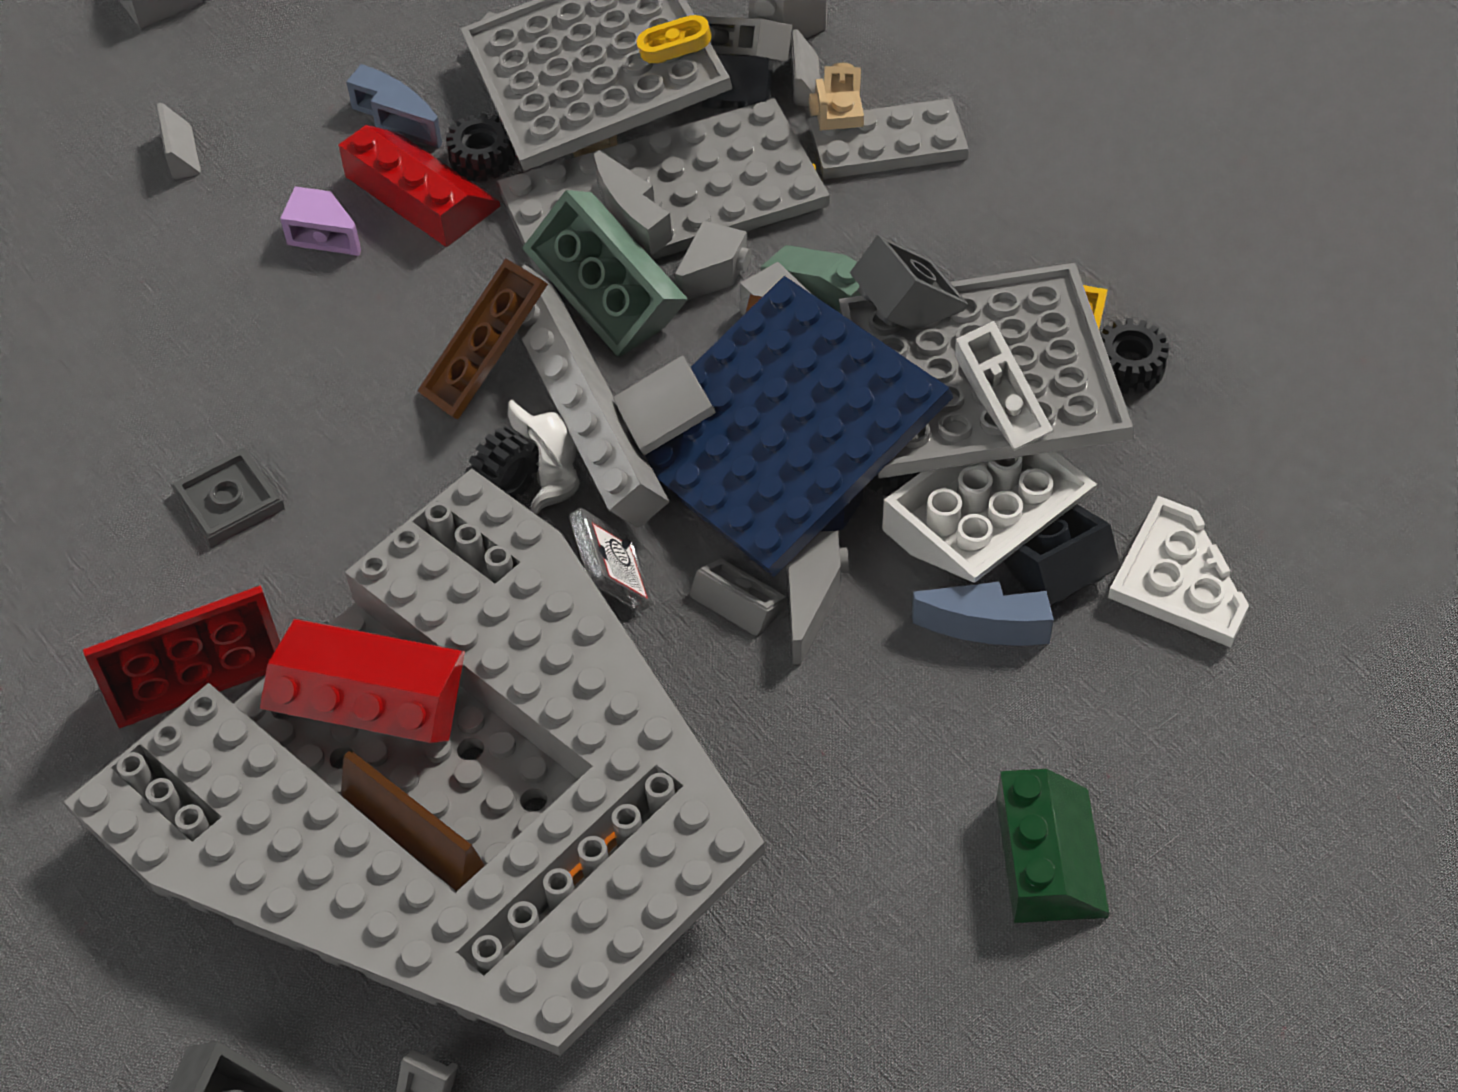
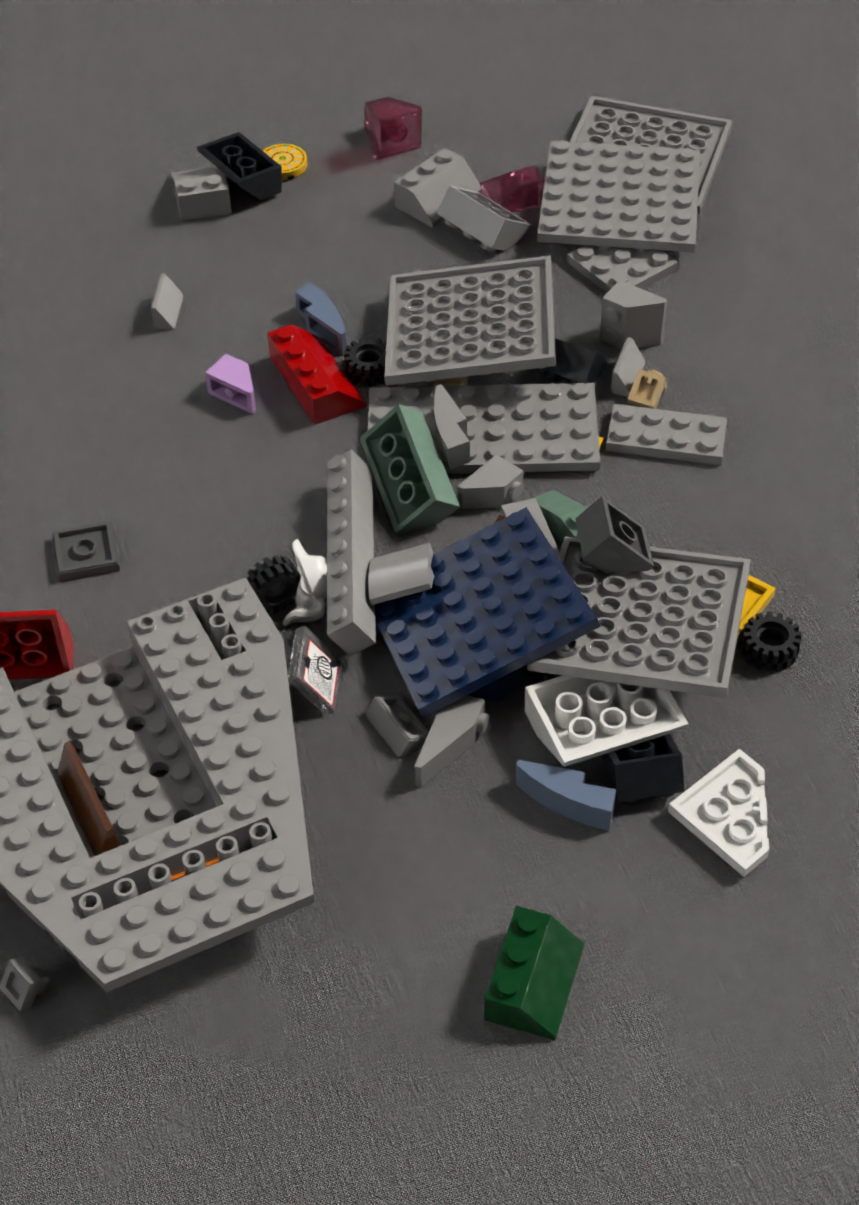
camera: 20 degrees right, 5 degrees down
(364, 681) = (103, 698): red slope -> none
(482, 338) = (299, 492): reddish brown slope -> none
(674, 39) = (526, 319): yellow plate -> none
(750, 37) = (588, 333): light grey slope -> none
(836, 109) = (632, 402): tan bracket -> none
(1001, 386) = (640, 629): white slope -> none

